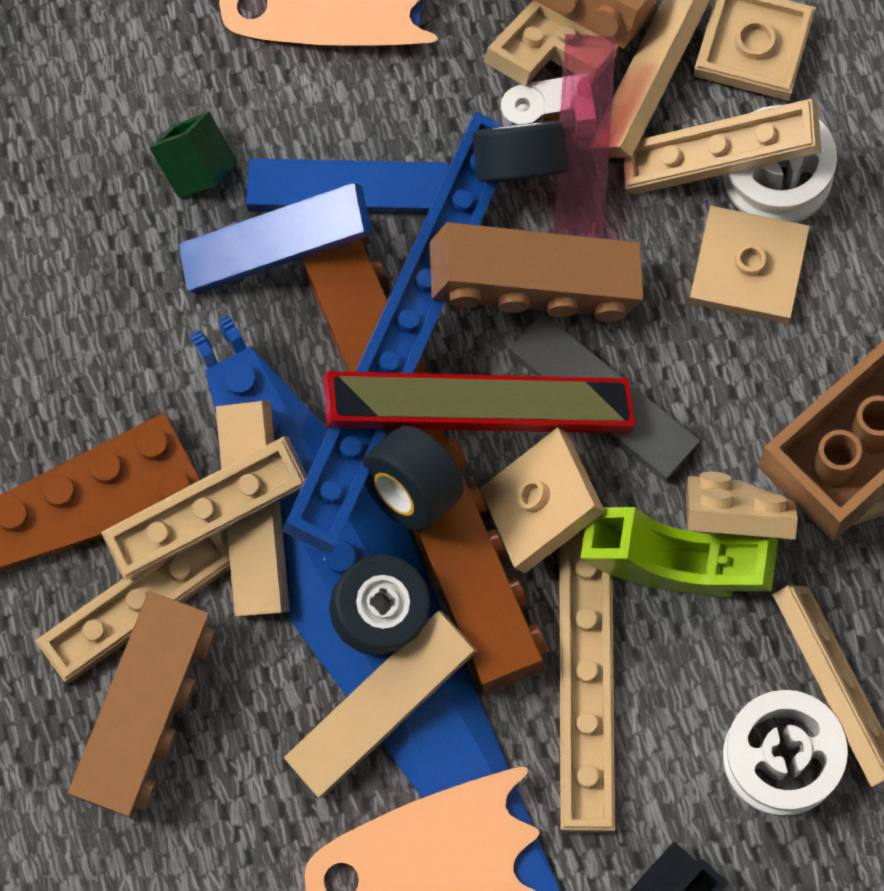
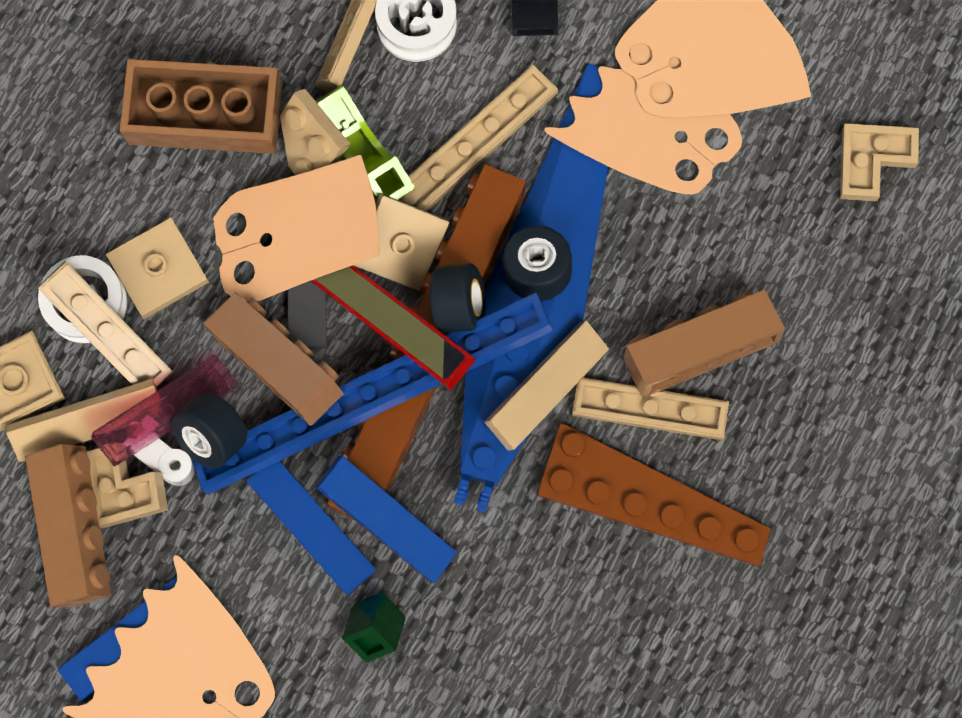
camera: 135 degrees left, 5 degrees up
(205, 508) = (572, 403): tan tile -> none
(380, 704) = (587, 224): tan tile -> none
(634, 432) = (315, 223): none -> light nougat piece

